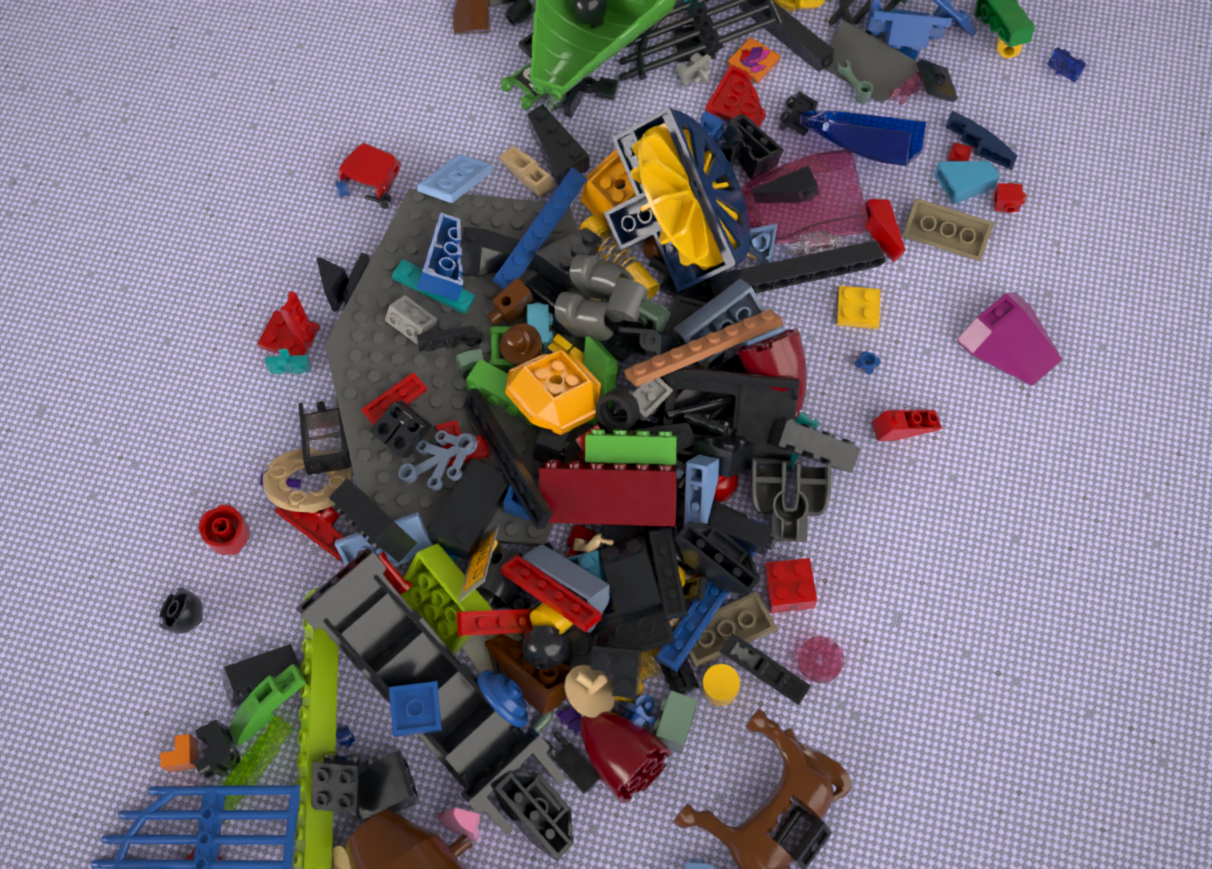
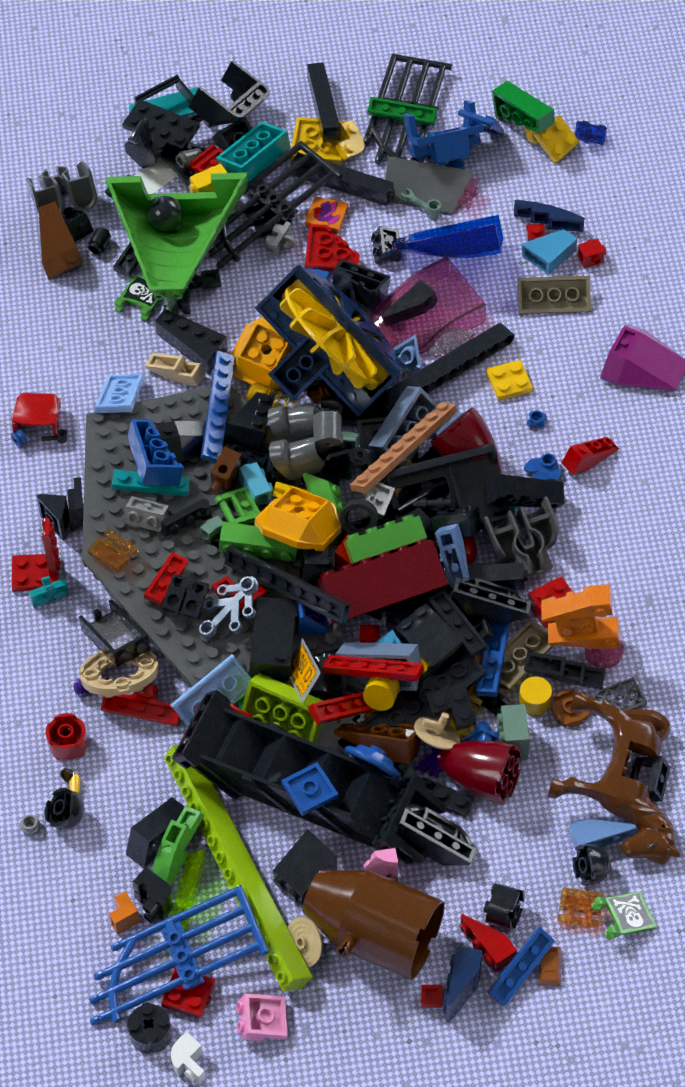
camera: 25 degrees left, 10 degrees down
(140, 608) = (30, 819): none -> light grey plate
(211, 578) = (71, 778): none -> arm
(337, 782) = (270, 873): black bracket -> none
(344, 736) = (253, 848): clear blue plate -> none
(350, 350) = (111, 555): none -> clear orange plate
(371, 521) = (199, 670): black wedge -> none
(521, 344) = (251, 498): reddish brown plate -> none
(544, 647) = (386, 711): black cylinder -> none
(582, 546) = (388, 623): tan piece -> none
(747, 705) = (561, 709): none -> dark orange tile
(805, 625) = (578, 619): none -> orange wedge
(820, 724) = (608, 689): none -> dark grey window
(847, 424) = (541, 469): none -> blue plate
(884, 228) = (502, 311): red slope -> none
(937, 80) = (490, 180): black plate -> none
(1027, 60) = (557, 139): none -> yellow plate

